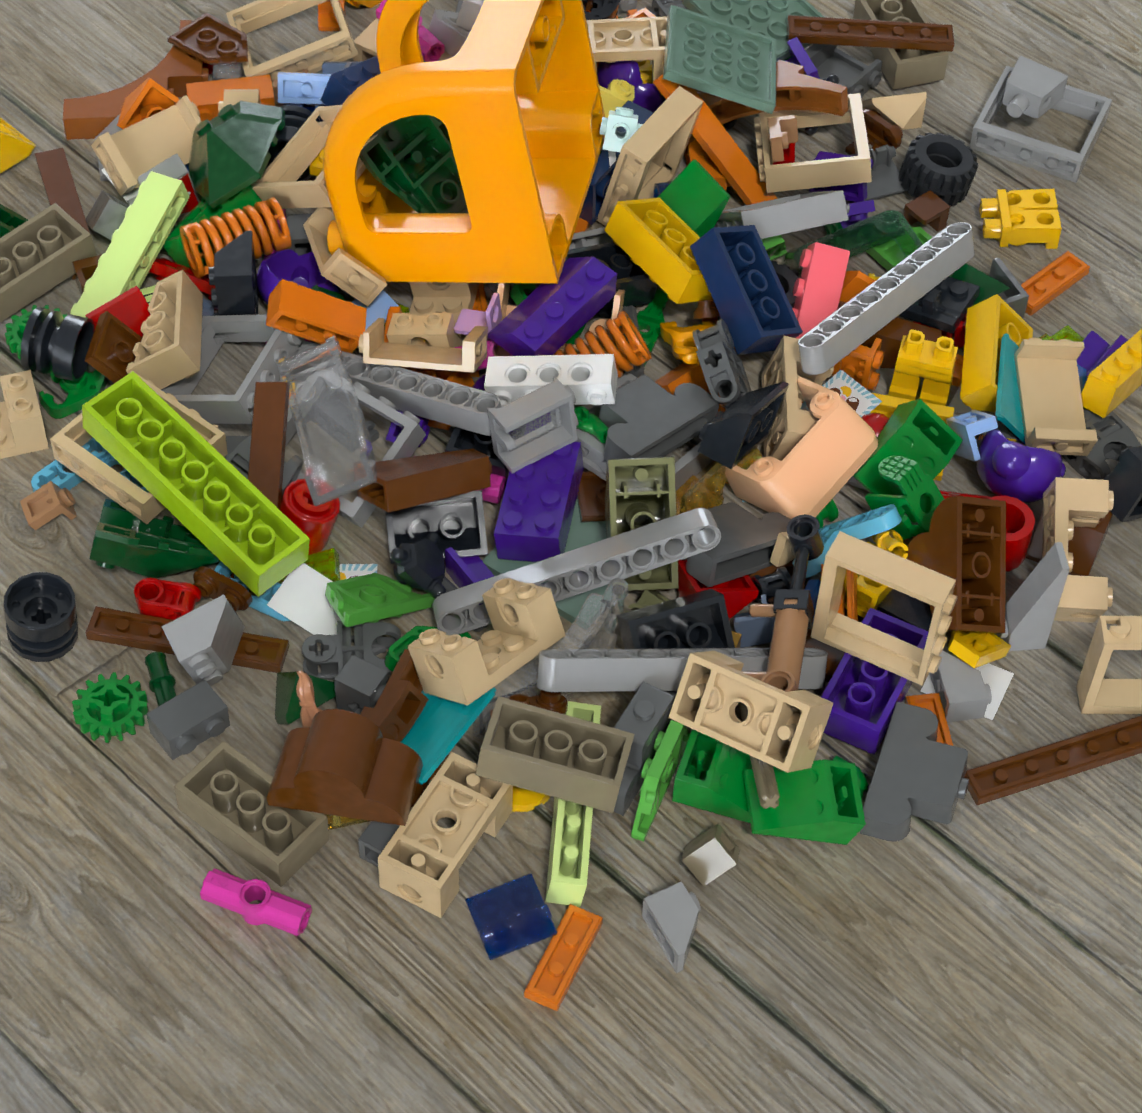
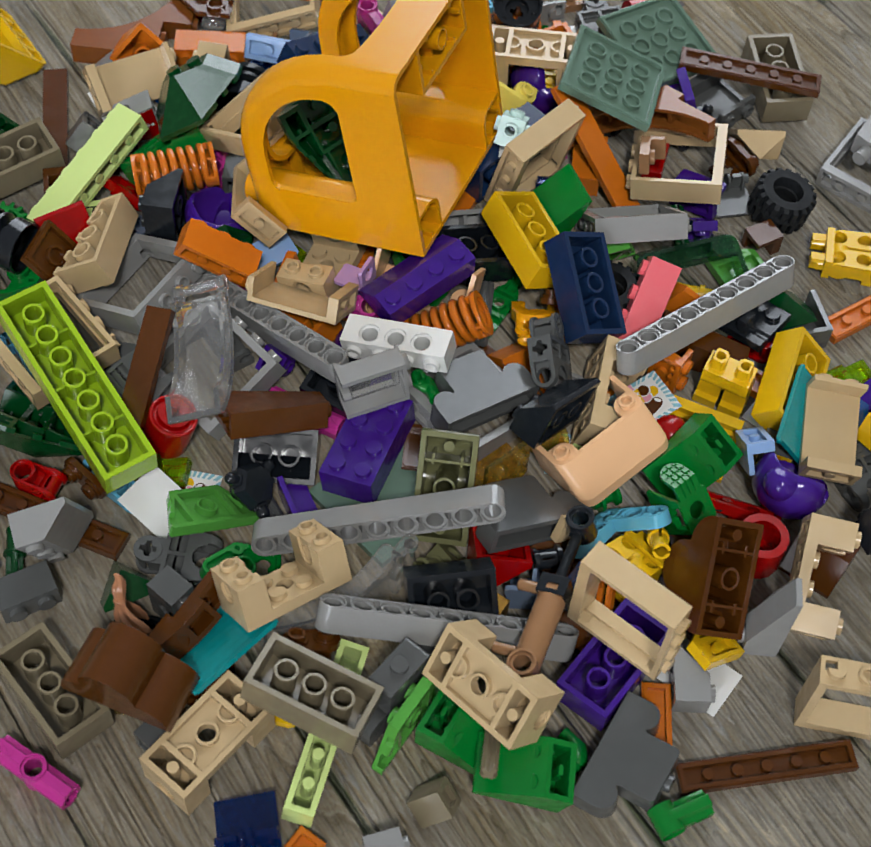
camera: 10 degrees right, 5 degrees up
(976, 824) = (674, 817): none -> green piece

